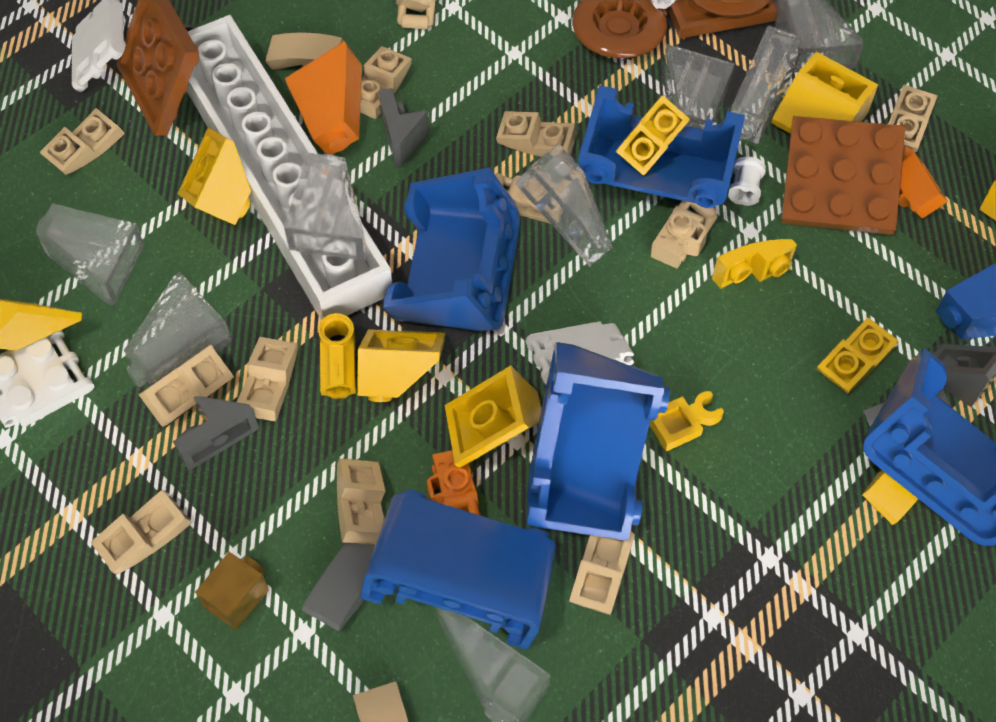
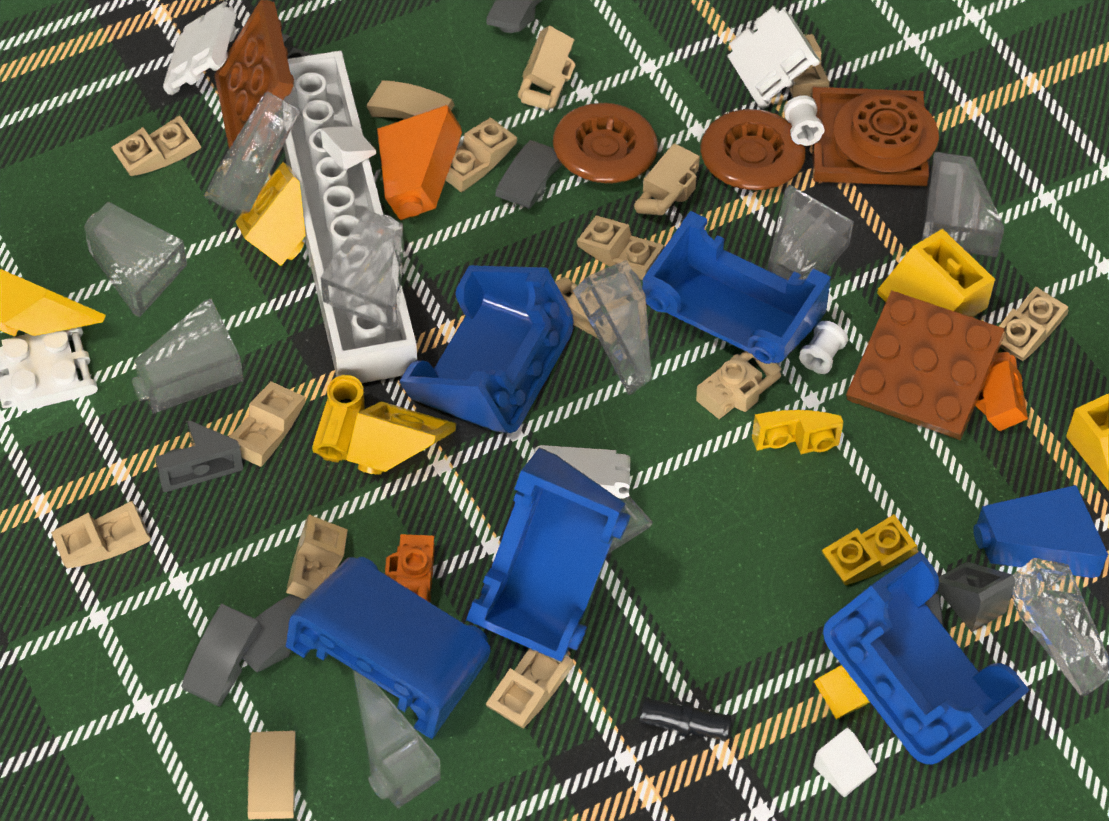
camera: 15 degrees right, 5 degrees down
(175, 391) = (197, 403): tan slope -> none
(178, 128) = (252, 155): none -> clear slope
(233, 589) = (170, 608): pearl gold brick -> none
(264, 99) = (346, 146): none -> white slope
(297, 624) = (218, 655): none -> dark grey slope
(402, 130) = (483, 211): dark grey slope -> none
(433, 87) = (528, 174): none -> dark grey slope
(491, 415) = (467, 511): yellow slope -> none
(499, 45) = (604, 153): none -> dark orange wheel
(559, 67) = (669, 181): none -> tan piece
(652, 135) = (732, 275): yellow slope -> none
(683, 421) = (658, 568): yellow plate -> none
(758, 563) = (685, 719): none -> black pin
(766, 81) = (875, 251): clear slope -> none
(916, 565) = (844, 762): none -> white slope

